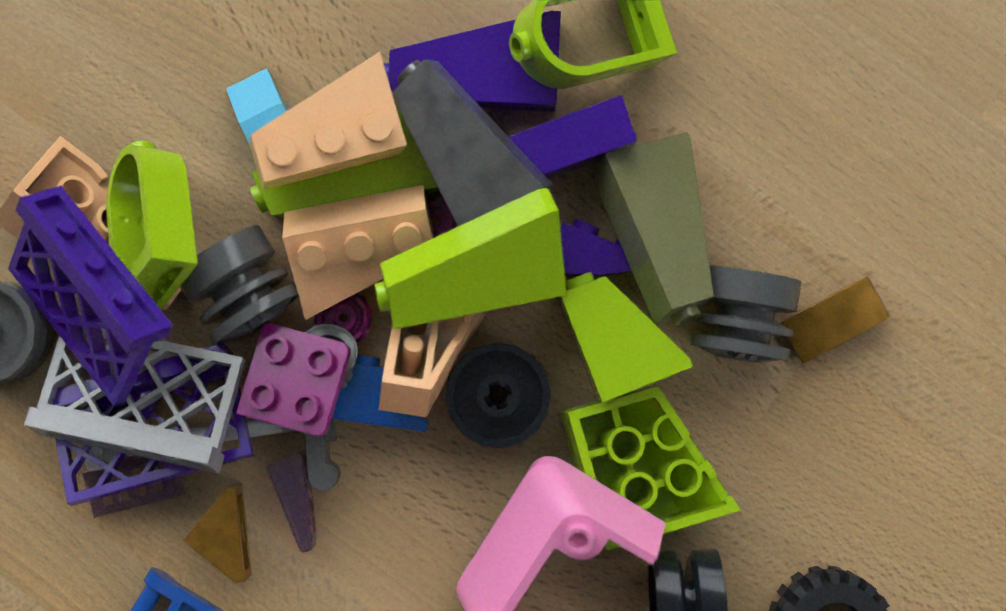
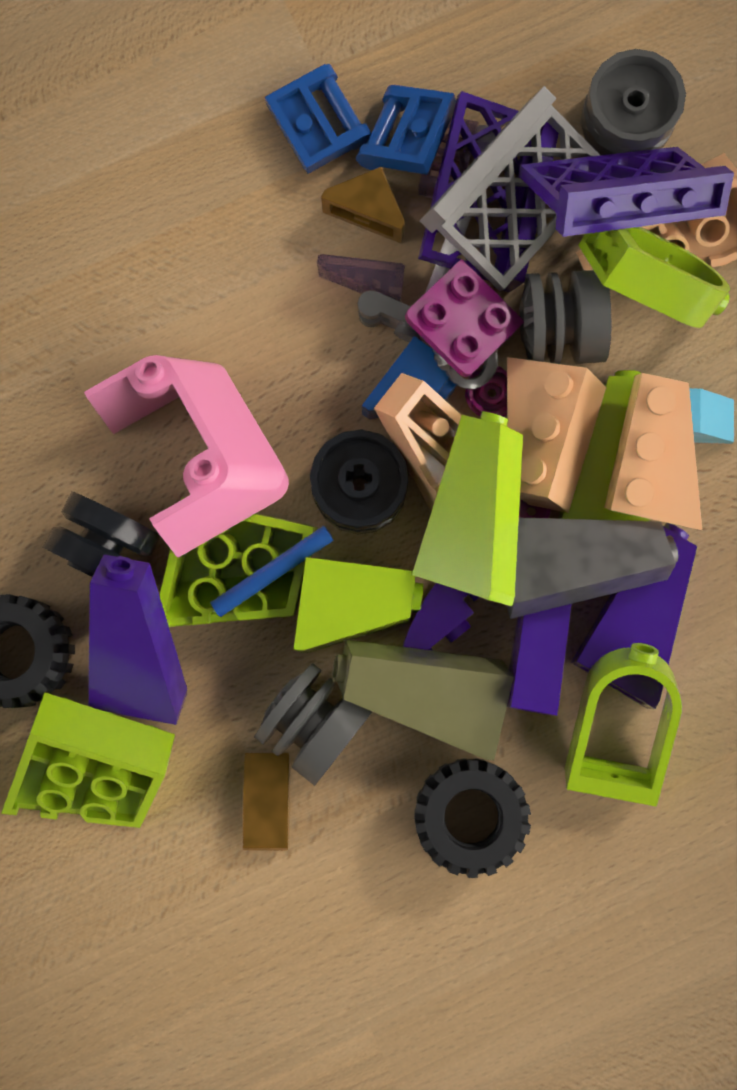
camera: 125 degrees right, 5 degrees down
(129, 524) = (417, 134): none -> blue plate
(629, 427) = (272, 571): none -> blue bar
(768, 518) = (131, 645): none -> dark purple slope
(781, 105) = (499, 845): none -> black tyre
(893, 499) = (89, 765): none -> lime wedge

